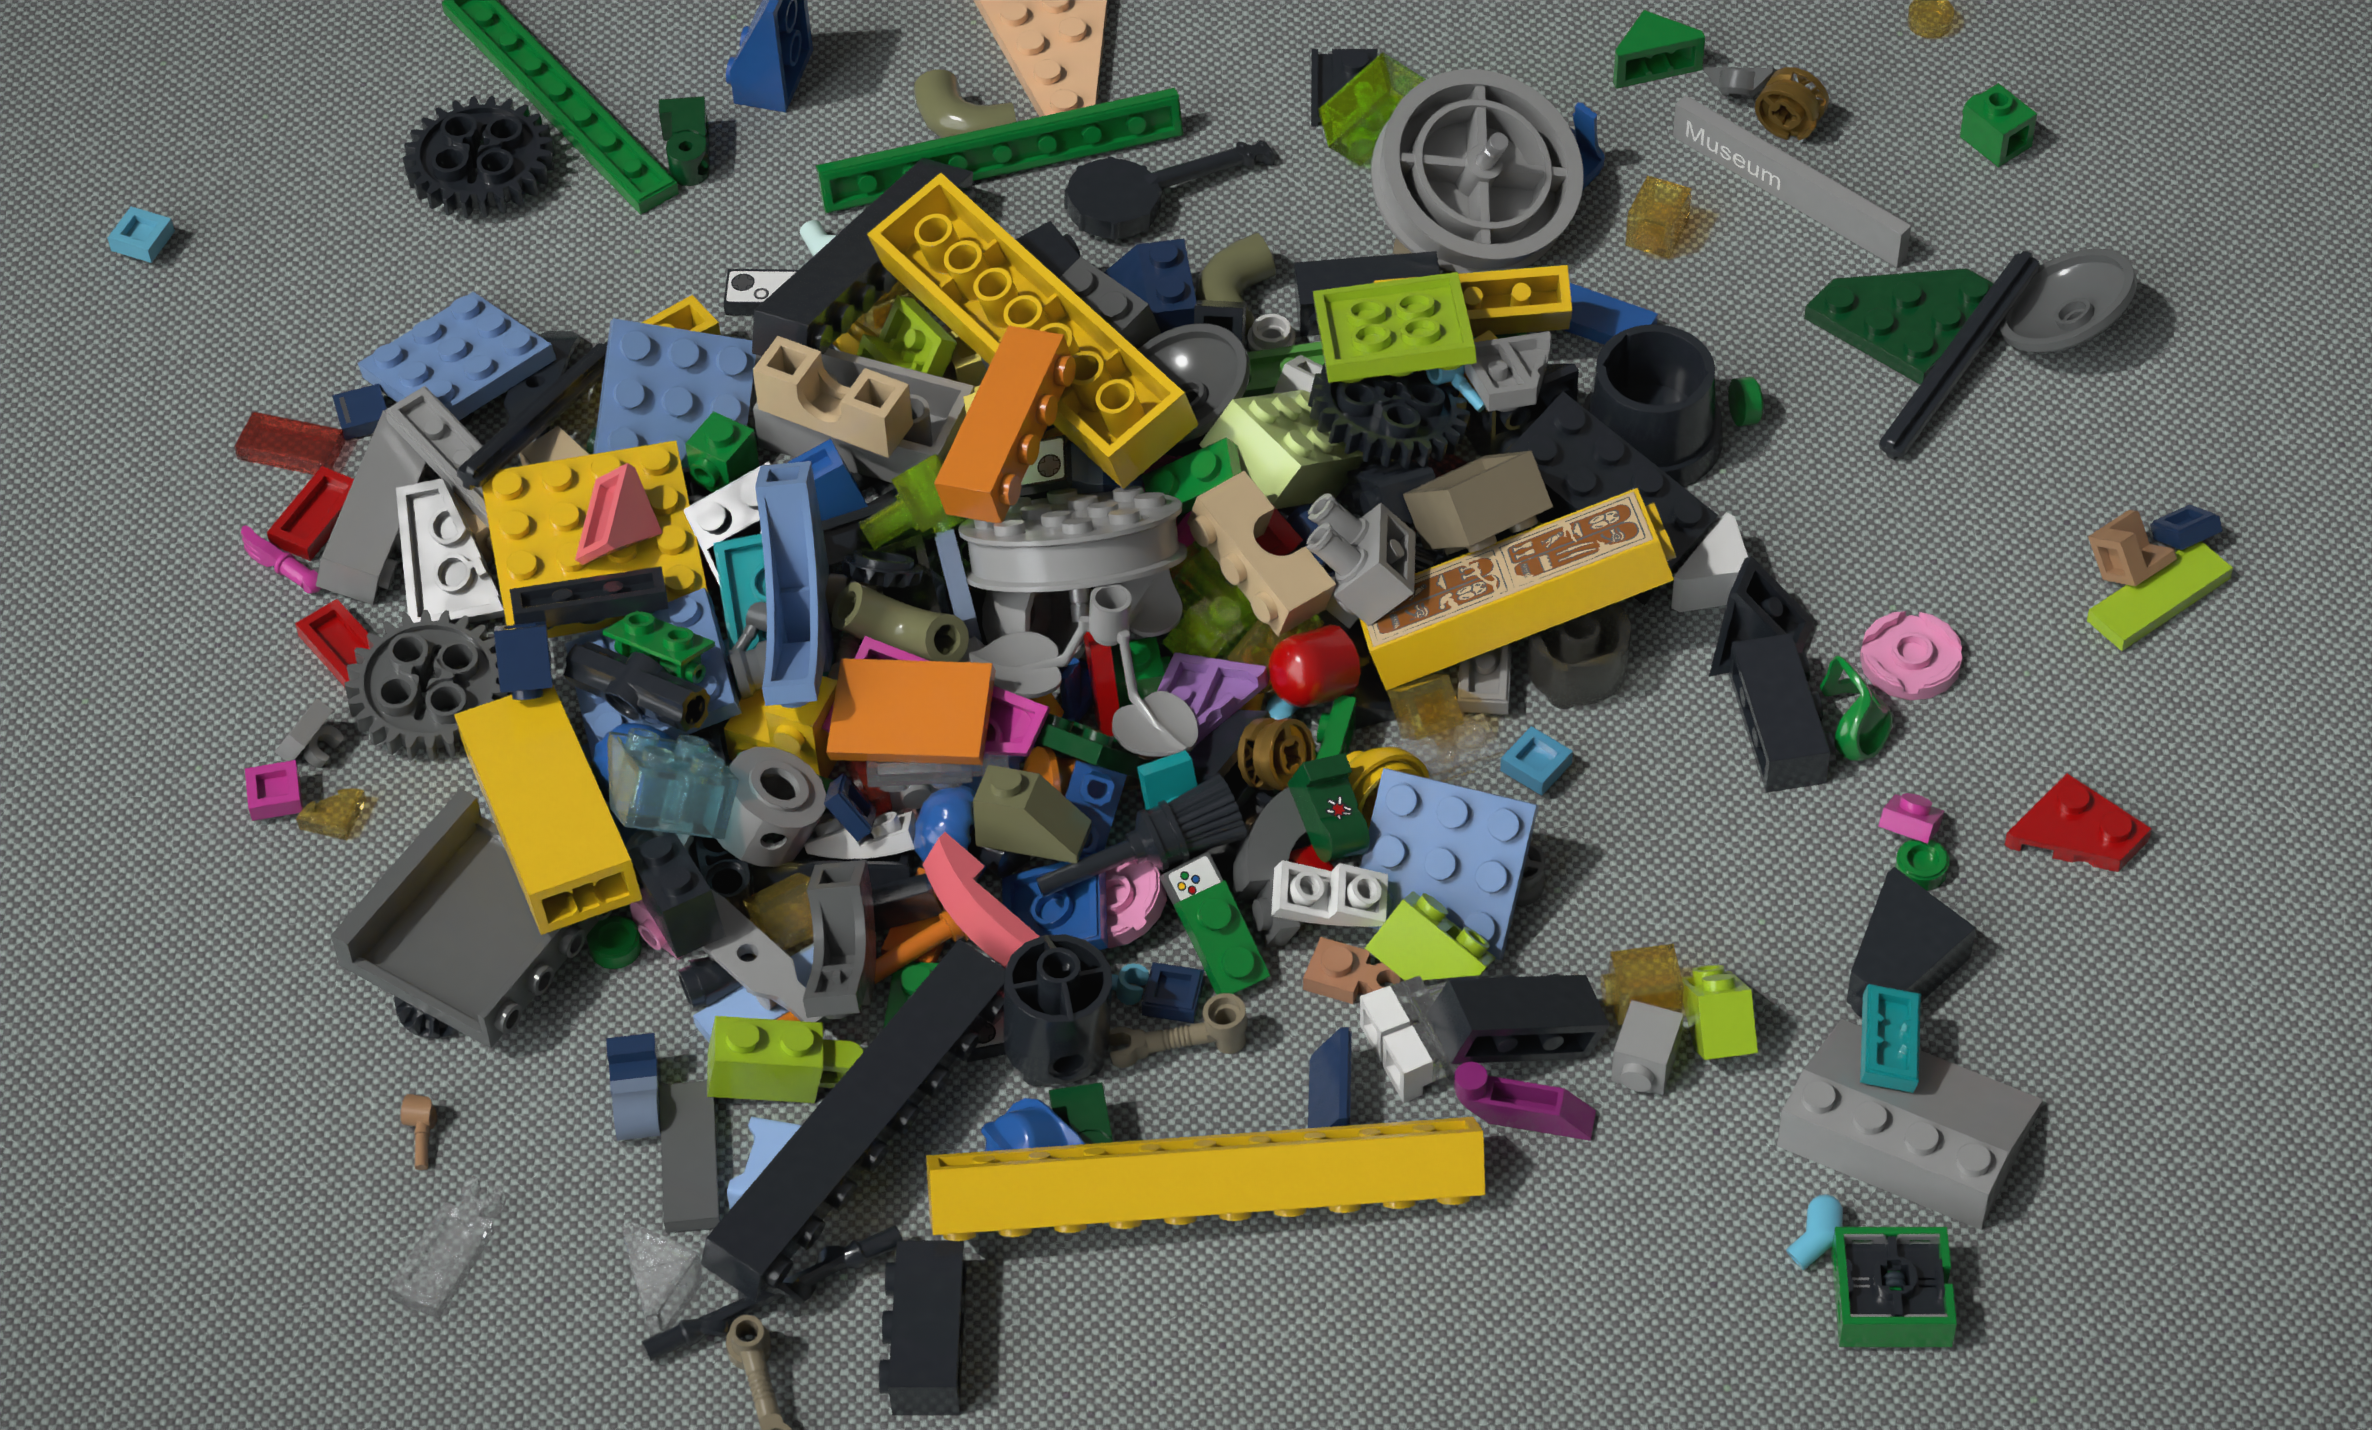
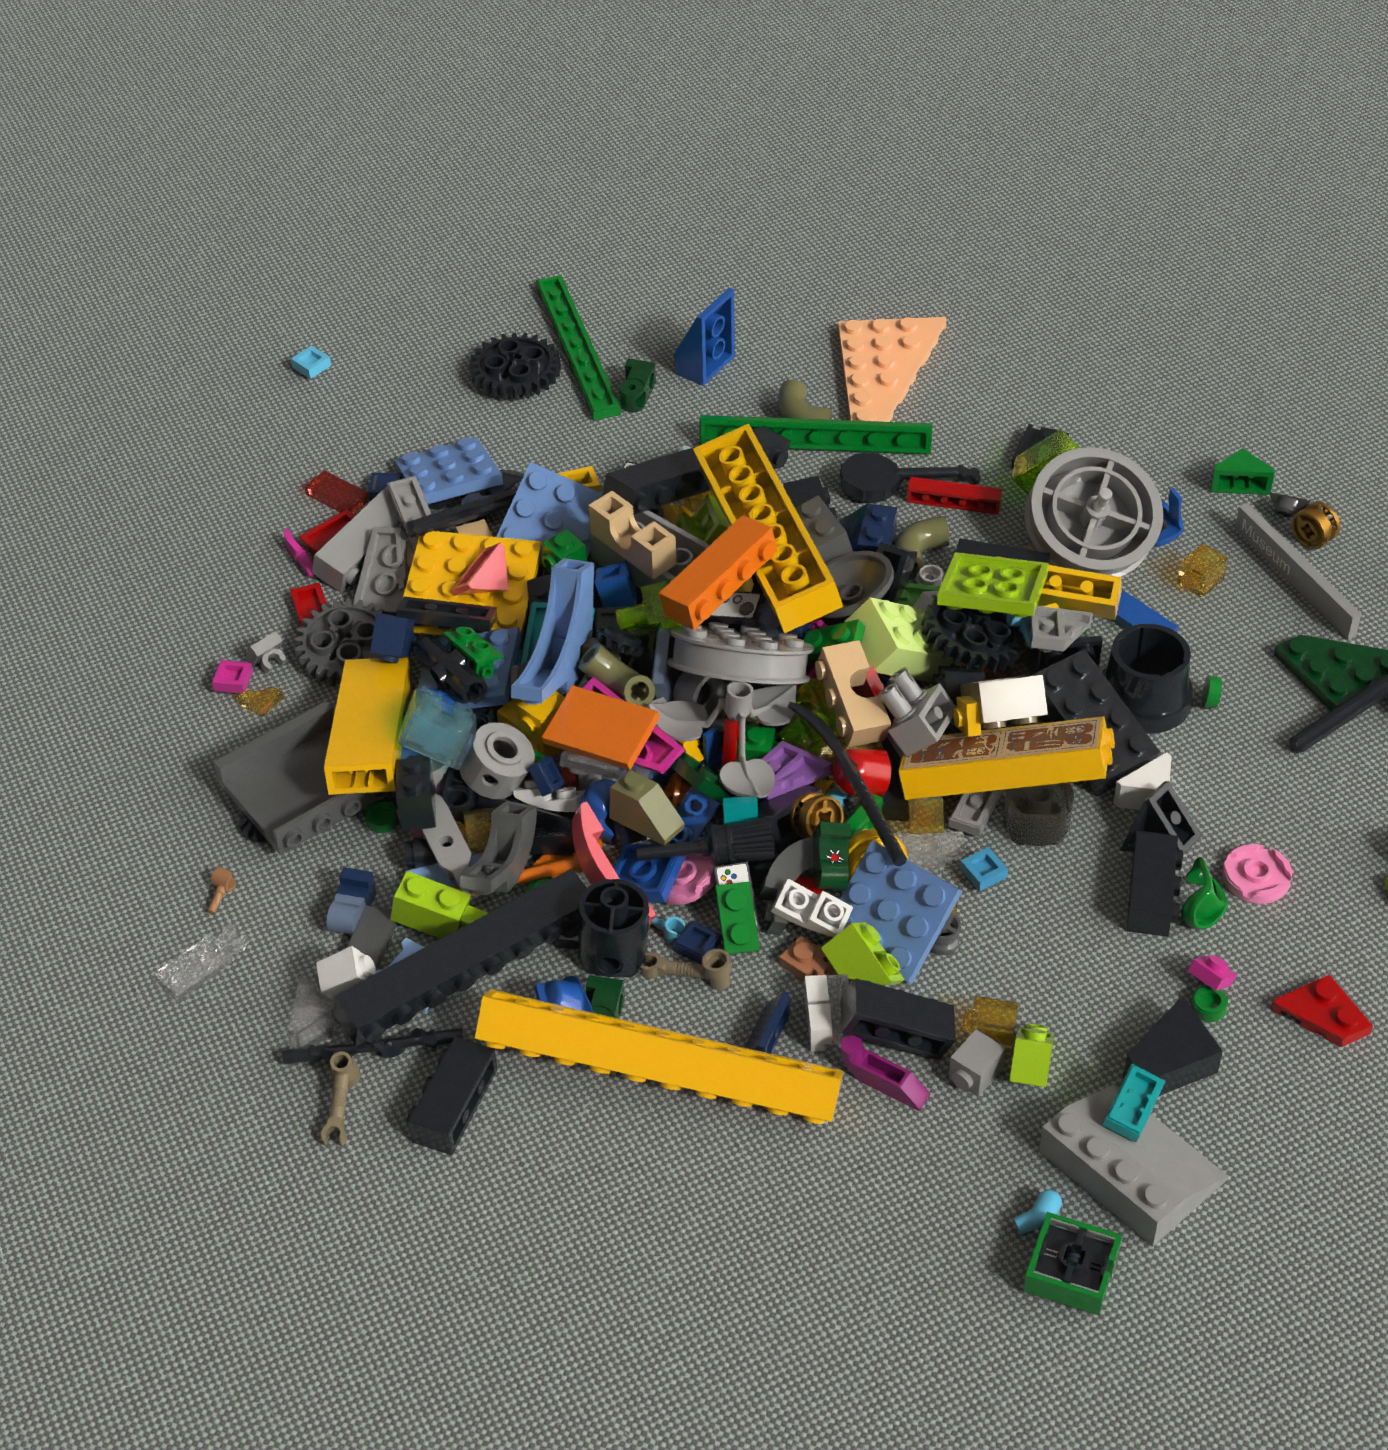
camera: 20 degrees right, 5 degrees down
(692, 1199) = (343, 971): none -> white brick
(1249, 193) = (954, 495): none -> red piece
(1323, 688) = (851, 771): none -> black piece
(1438, 540) = (967, 716): none -> yellow plate

